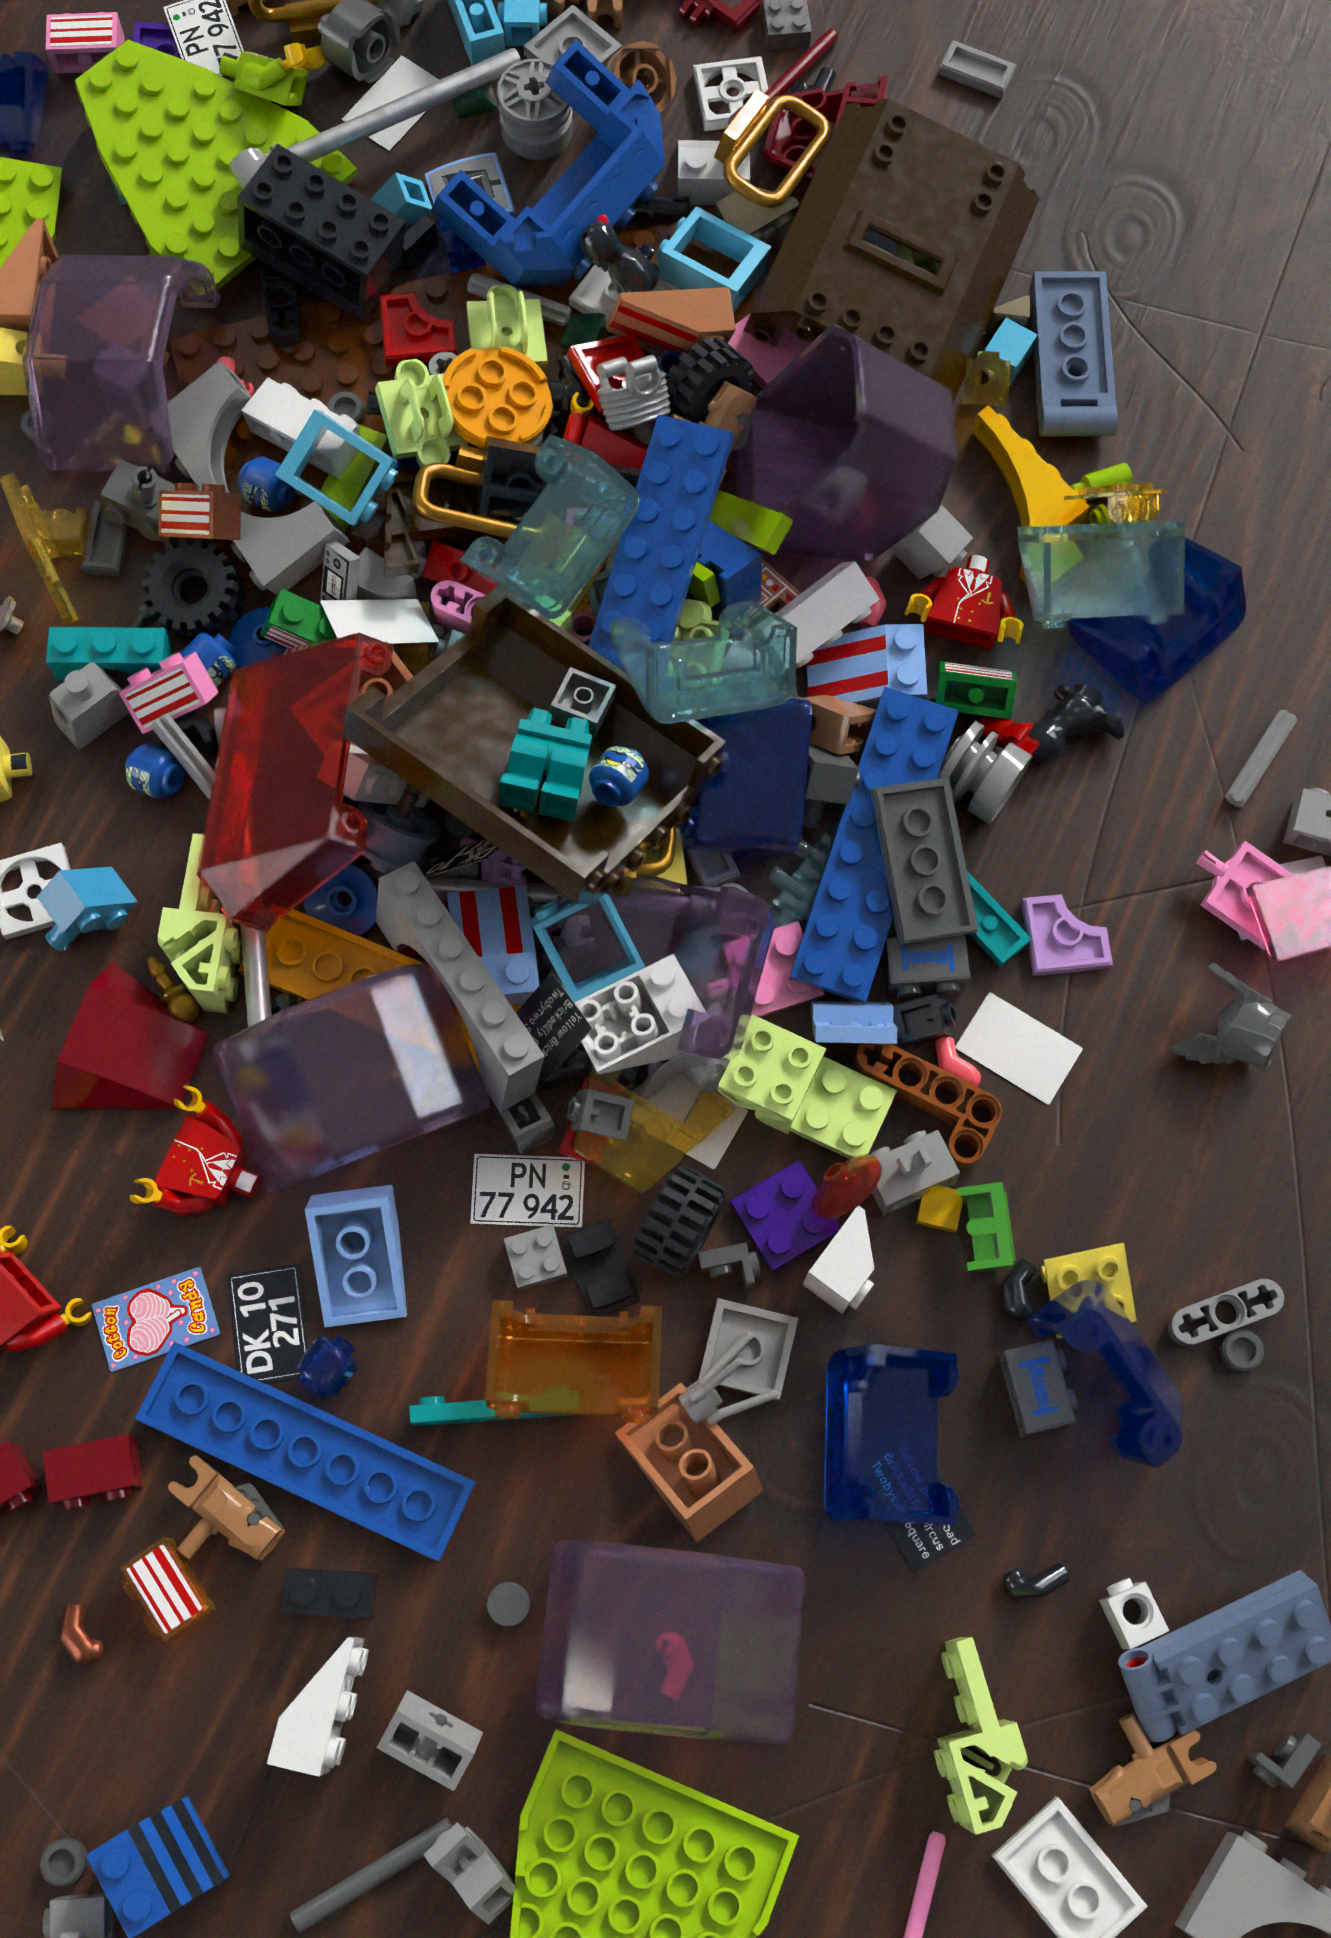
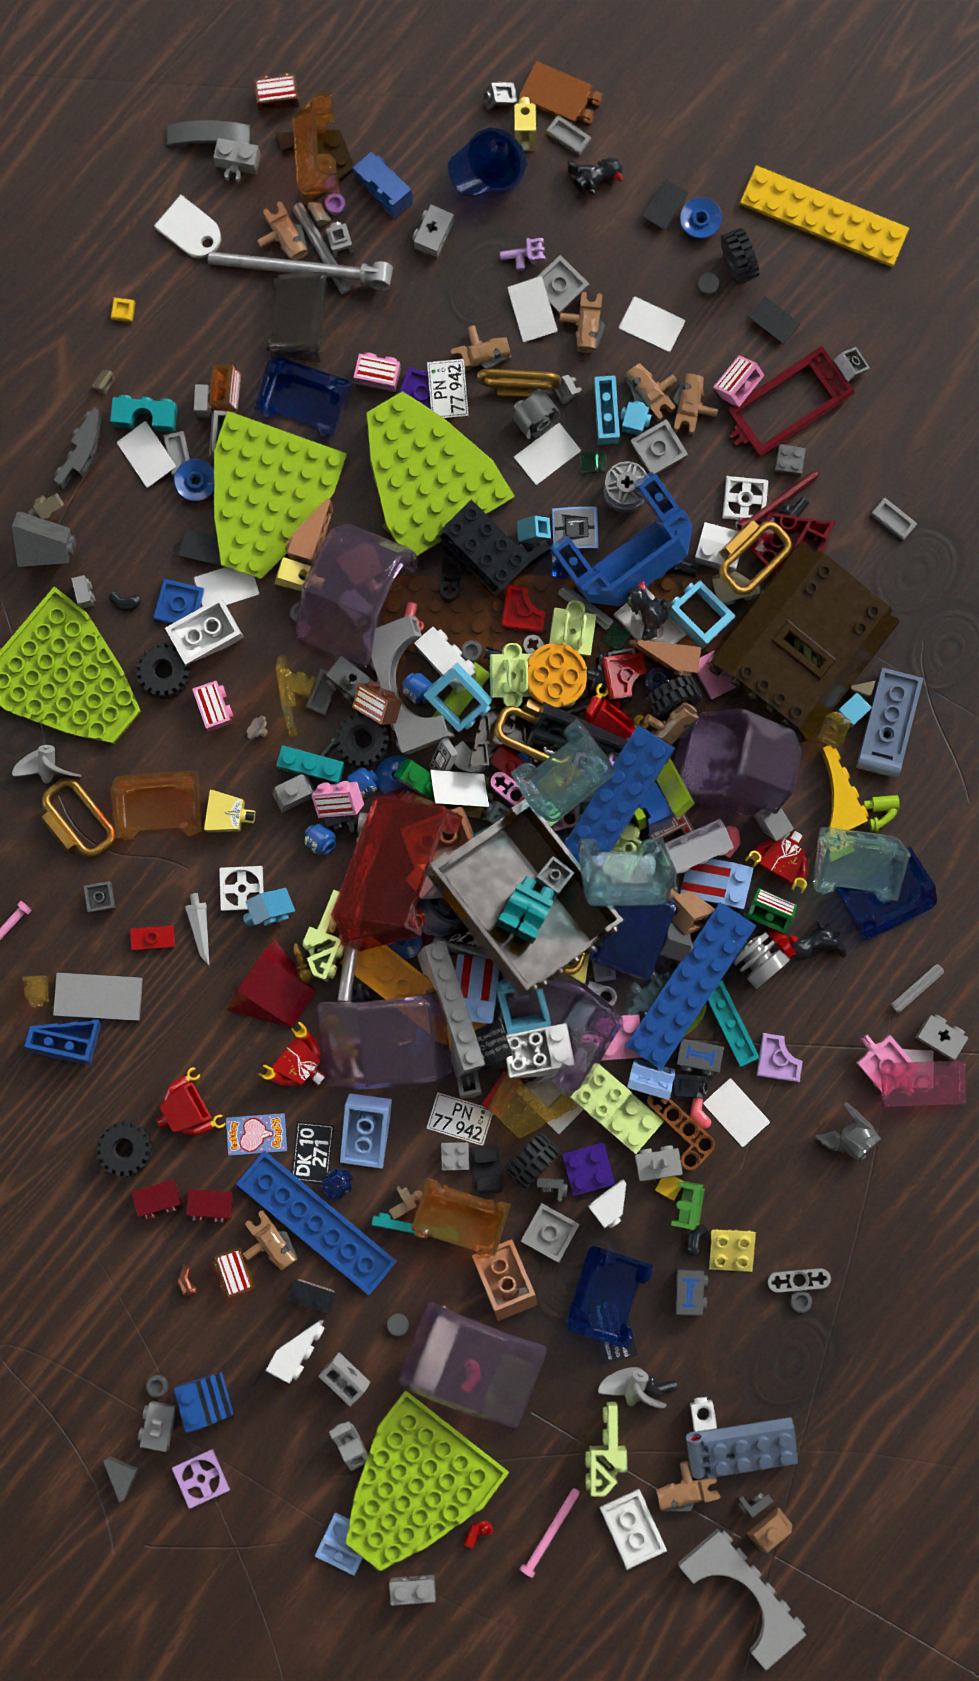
camera: 20 degrees right, 10 degrees up
(185, 752) = (339, 838): light grey axle -> none
(249, 161) = (458, 495): flat silver piece -> none
(273, 78) = (479, 429): lime torso -> none
(367, 1877) = (300, 1433): dark grey piece -> none
(470, 1368) = (408, 1204): none -> dark tan piece
(600, 1114) = (506, 1095): dark grey bracket -> none
(618, 776) = (561, 926): blue head -> none
(641, 397) = (629, 704): light grey piece -> none
(648, 65) = (691, 484): medium nougat cylinder -> none
(702, 1398) = (519, 1251): light grey plant -> none
(846, 1186) = (622, 1166): clear red dish -> none
(924, 861) = (712, 1004): dark grey tile -> none
(979, 1593) = (631, 1384): none -> light grey piece
(1094, 1321) = (726, 1268): clear blue windscreen -> none
(1125, 501) = (885, 826): clear yellow hinge -> none

